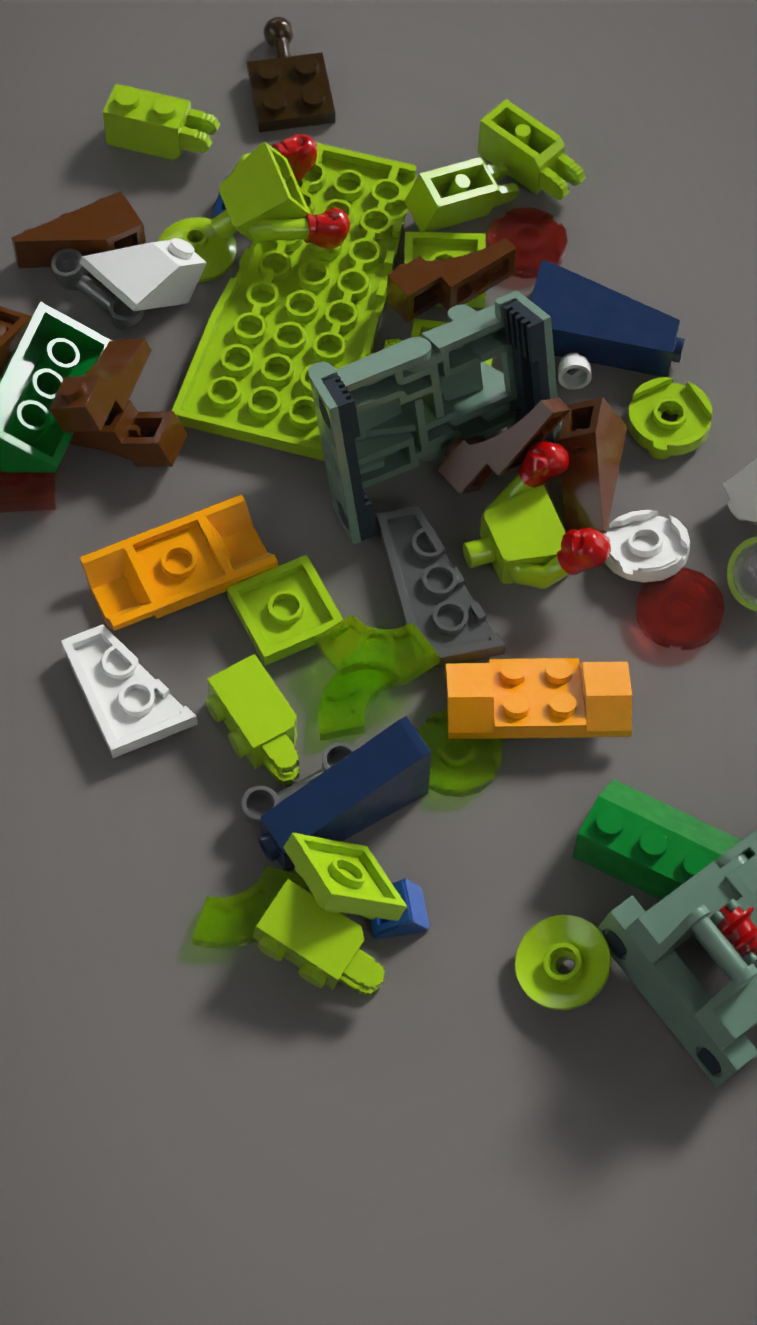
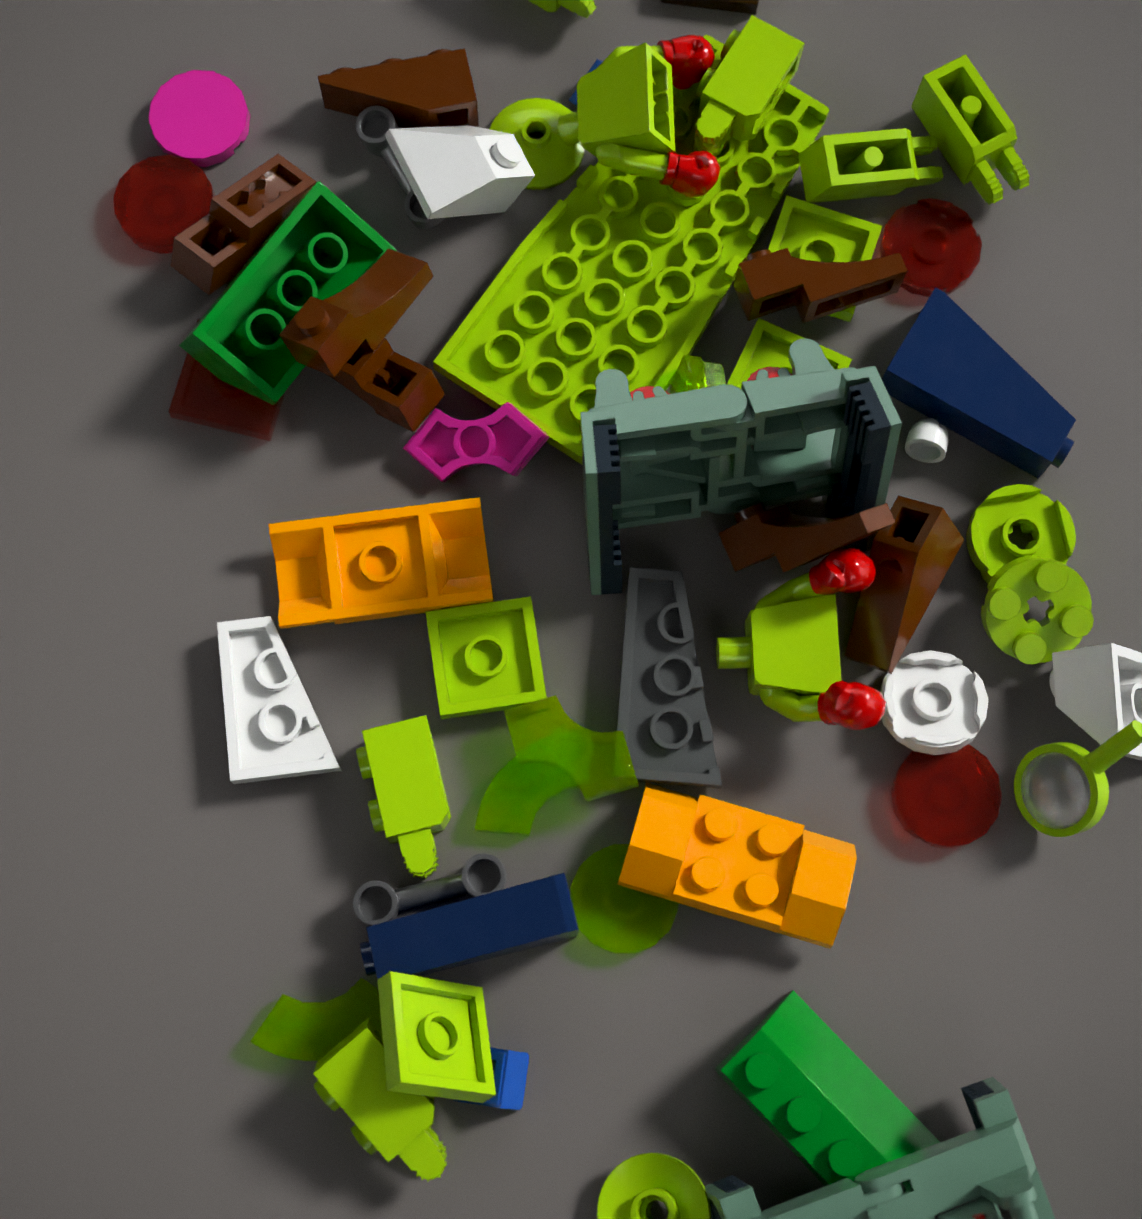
camera: 15 degrees right, 15 degrees up
(242, 453) = (451, 444): none -> dark pink tile
(347, 160) = (745, 85): none -> lime hinge
(675, 459) = (1065, 619): none -> lime plate

